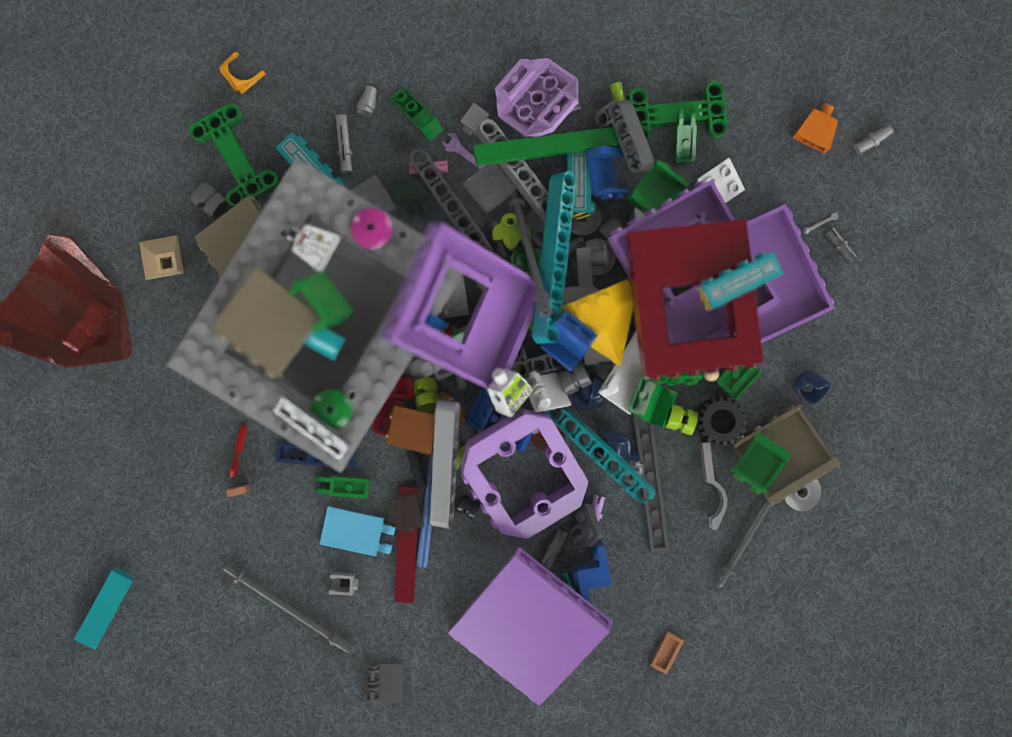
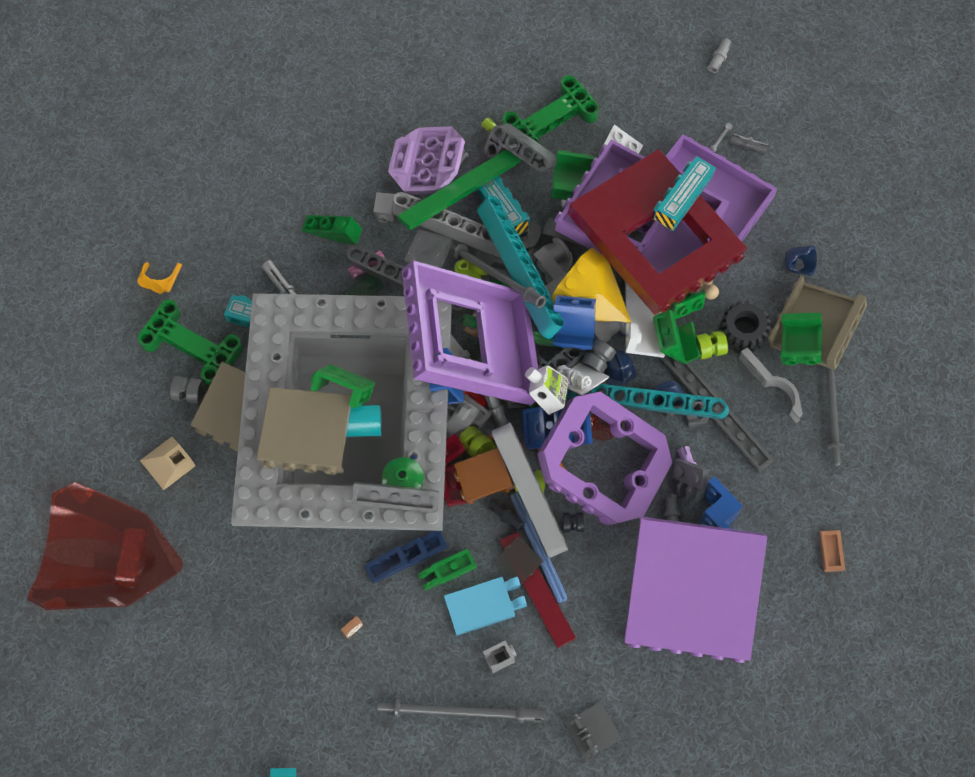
camera: 30 degrees left, 20 degrees down
(239, 447) = (330, 589): red piece -> none
(313, 245) = (309, 348): white torso -> none
(366, 104) = (284, 243): light grey cone -> none
(376, 237) = (353, 319): dark pink dish -> none
(455, 146) = (379, 237): lavender piece -> none
(603, 172) = (509, 179): blue panel -> none
(686, 137) = (568, 128): green hinge -> none
(737, 381) = (735, 286): green plate -> none
(807, 499) = (861, 349): light grey dish -> none
(818, 129) = (671, 70): orange torso -> none

